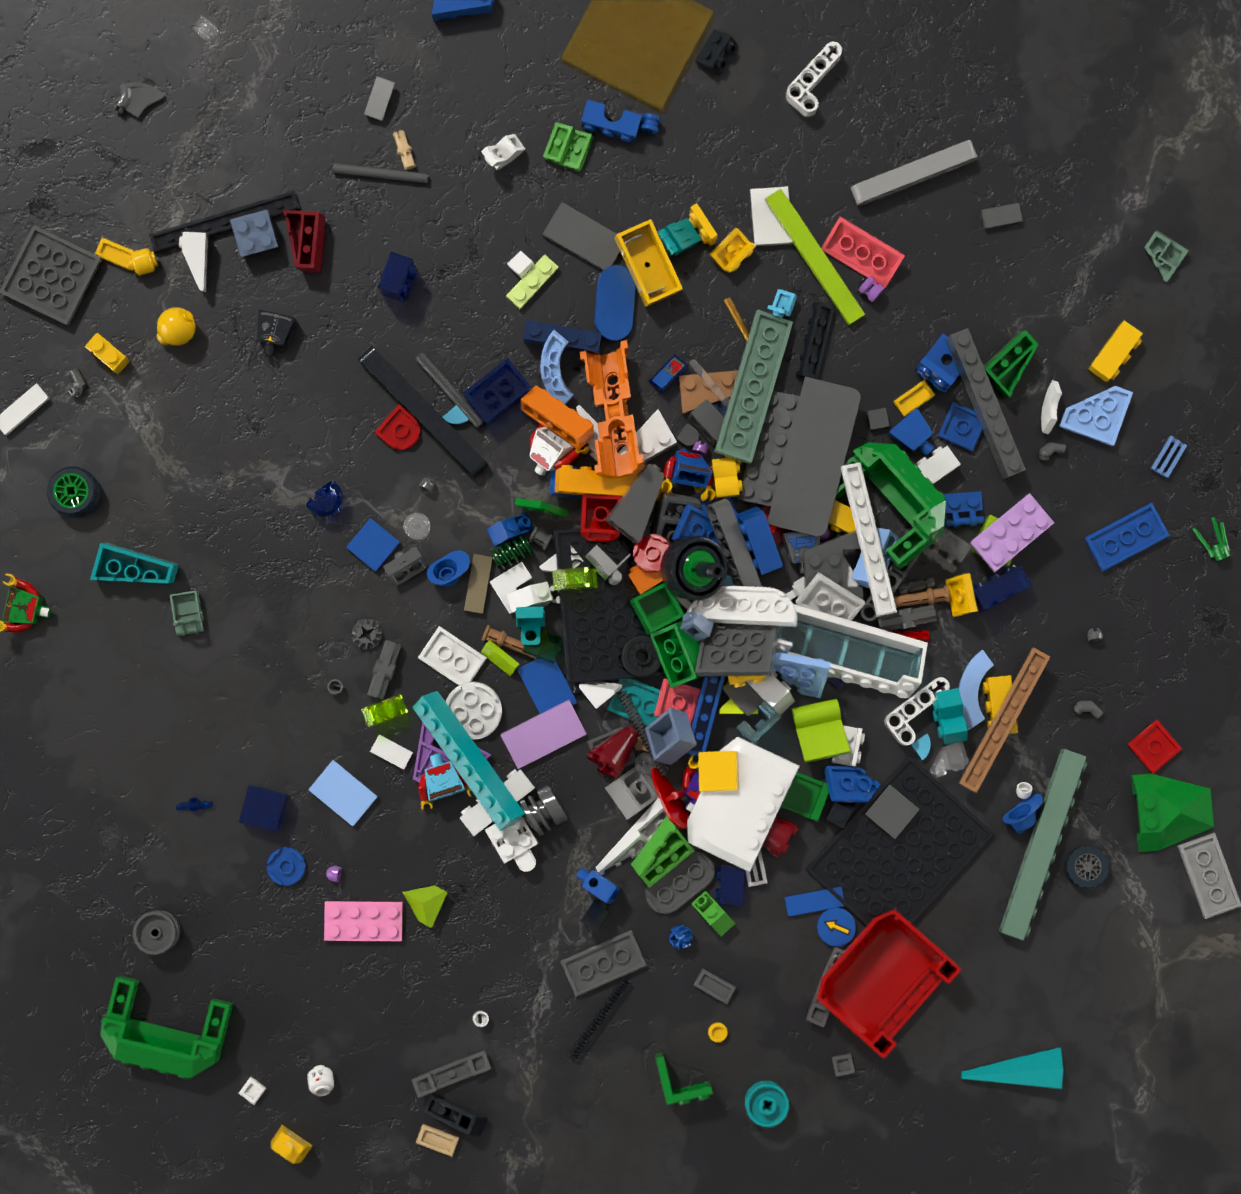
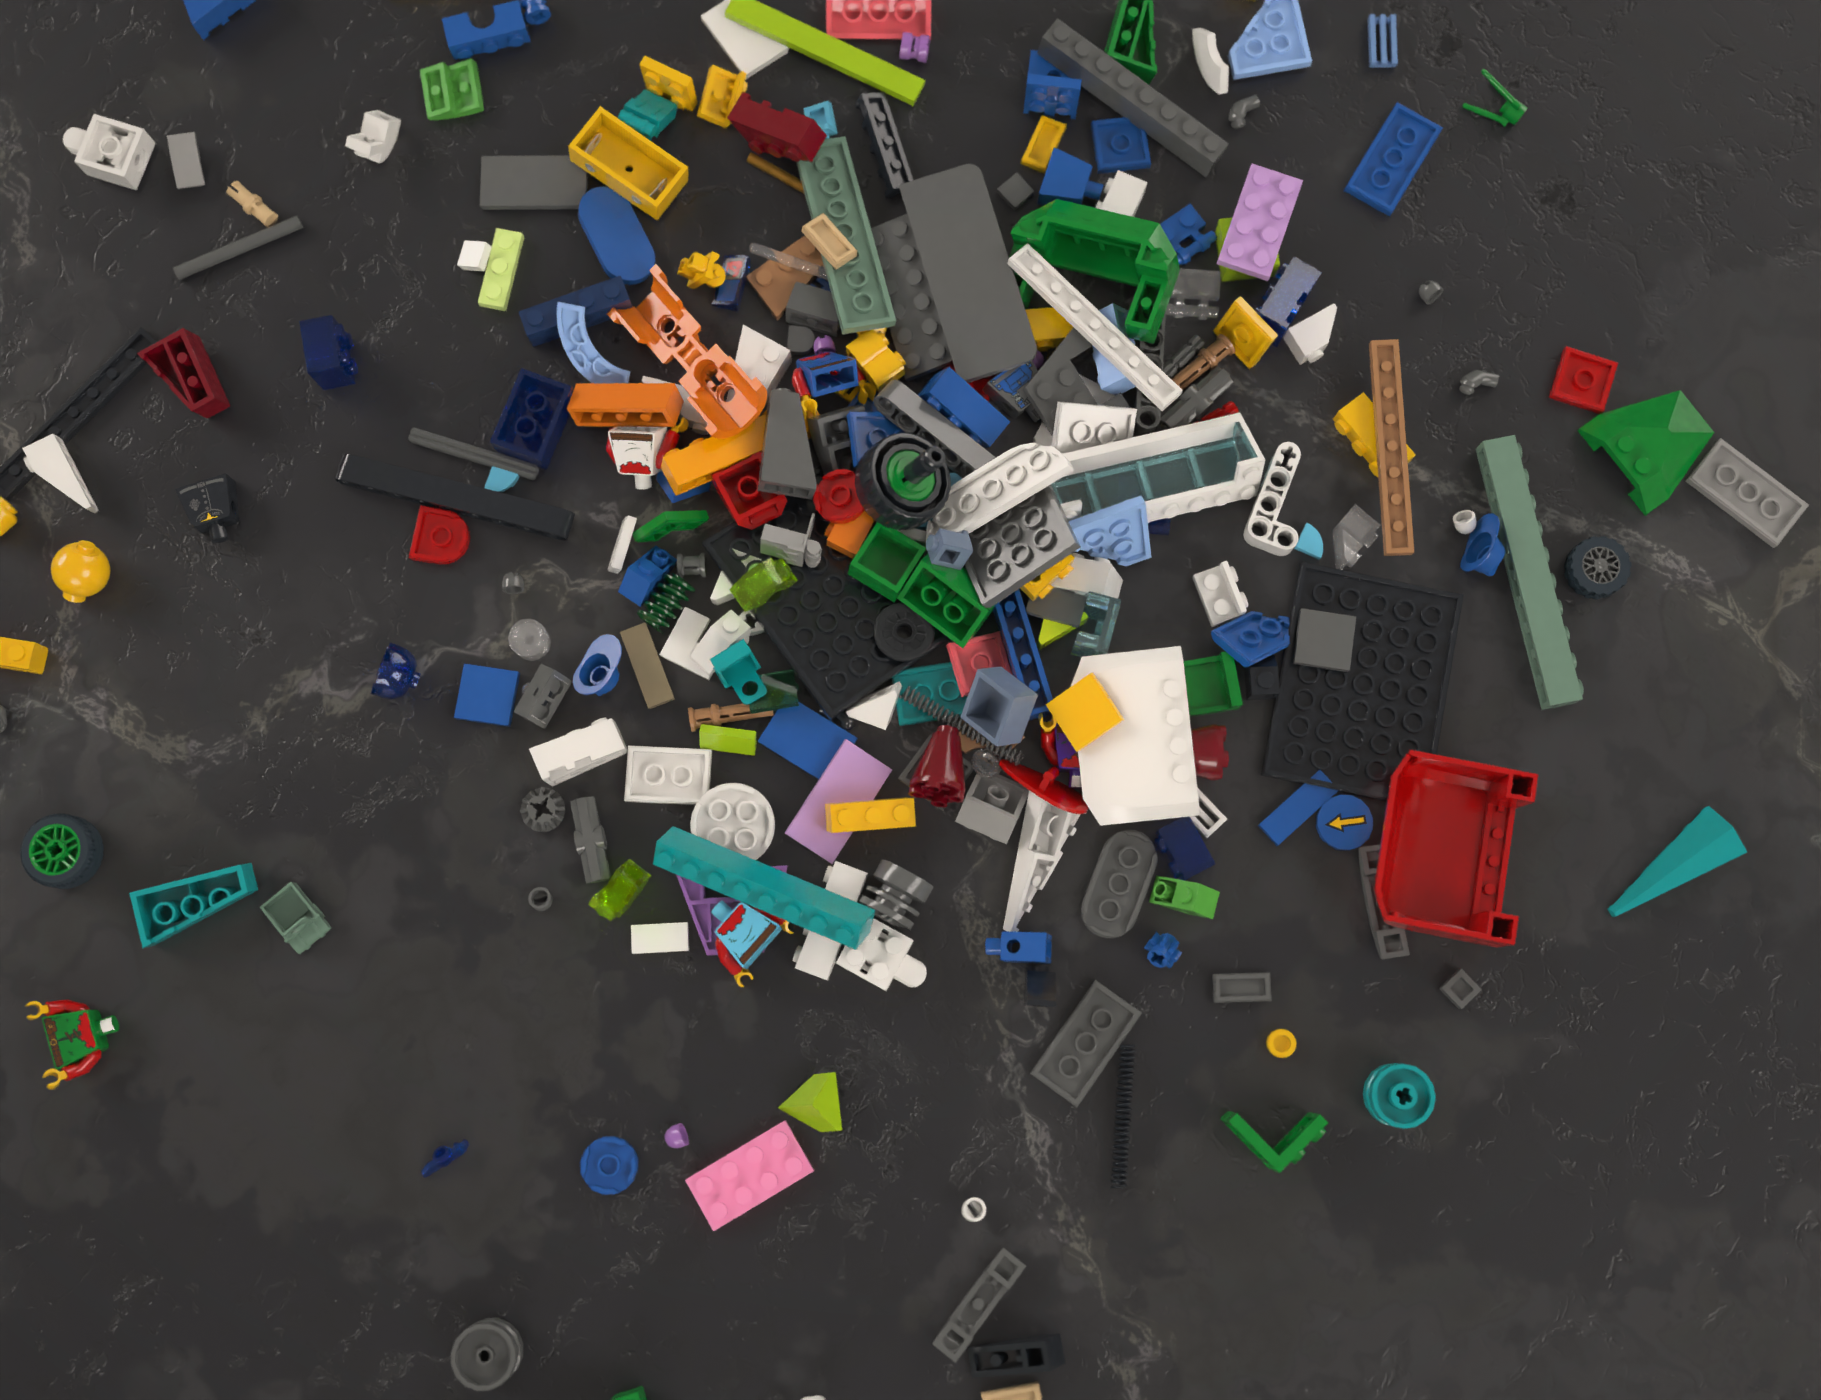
camera: 30 degrees left, 5 degrees down
(254, 233) = (117, 401): sand blue piece -> none
(263, 808) = (536, 1107): clear blue piece -> none
(335, 67) = (111, 150): none -> white brick
(343, 793) = (628, 1027): light blue tile -> none
(408, 612) = (578, 751): none -> white wedge
(505, 501) = (622, 544): none -> white tile
(556, 754) = (870, 815): none -> yellow brick
(653, 358) = (702, 270): none -> yellow hips
(661, 853) = (1075, 858): bright green wedge -> none
(740, 388) = (829, 241): none -> tan tile
(750, 297) = (775, 131): none -> dark red wedge
(820, 730) = (1176, 593): lime door -> none
(949, 715) = (1322, 483): teal brick -> none
(969, 688) = (1322, 441): light blue tile -> none
(1003, 620) = (1311, 335): none -> white slope

